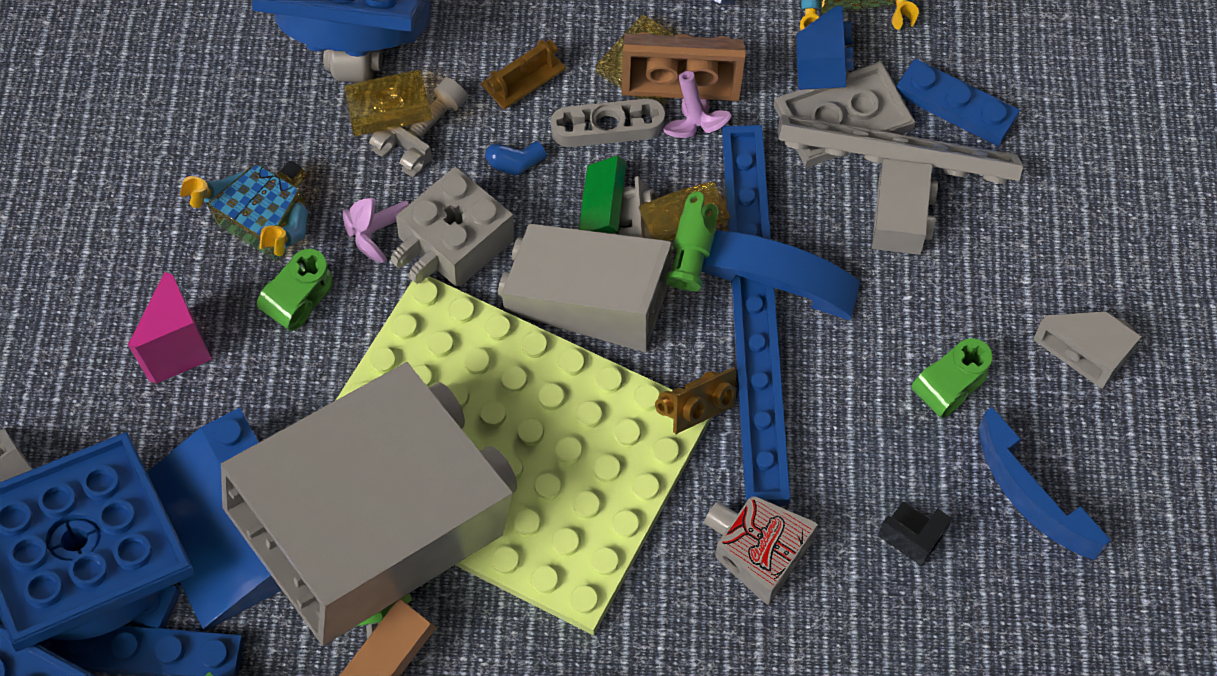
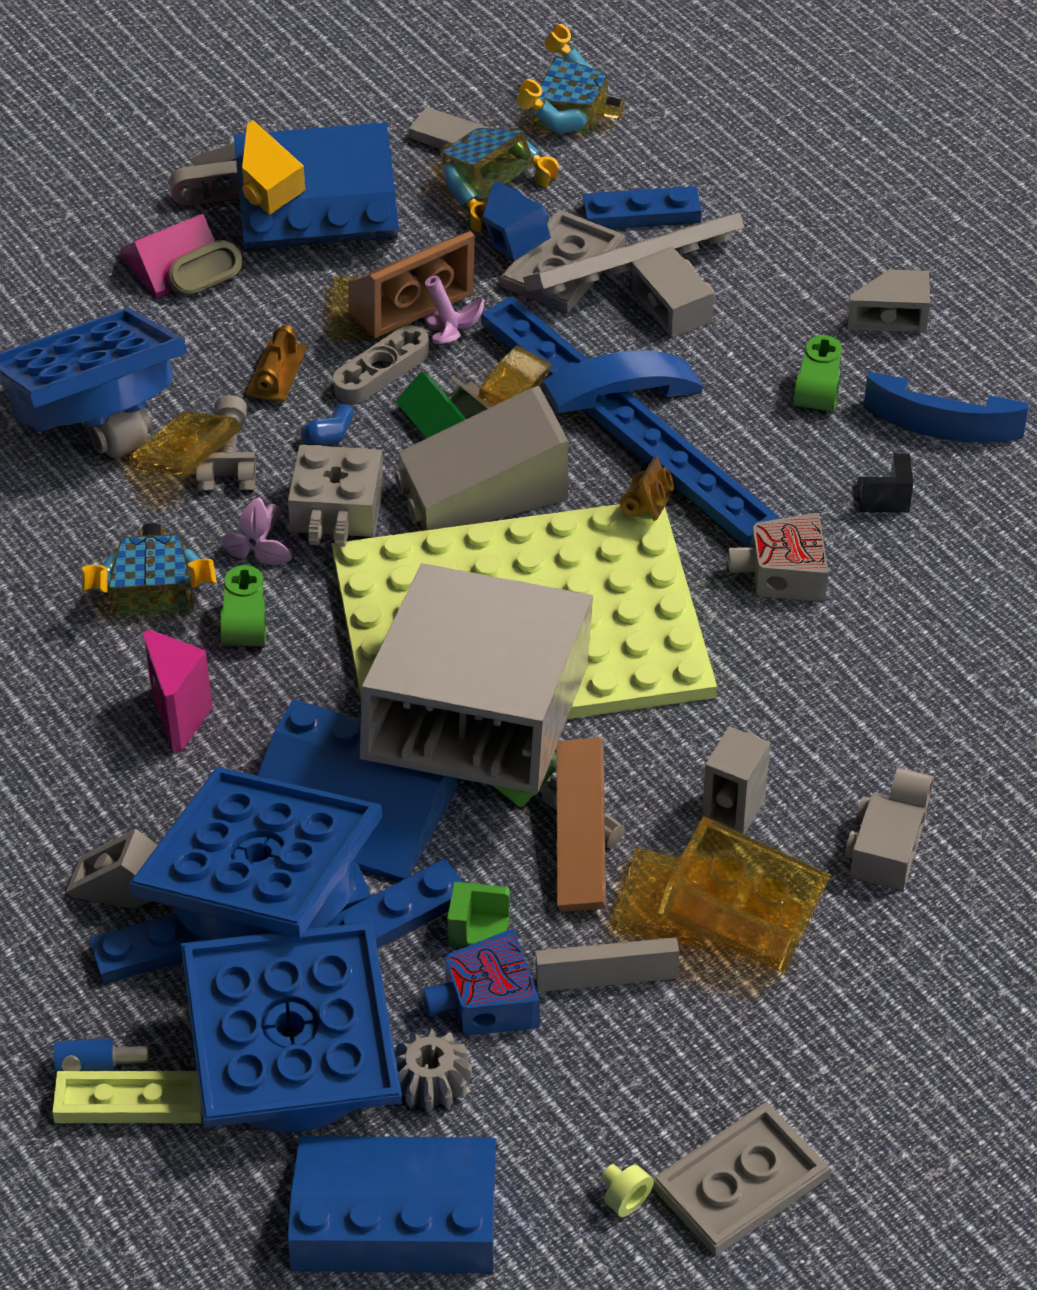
camera: 40 degrees left, 15 degrees down
(692, 243) = (553, 383): bright green piece -> none

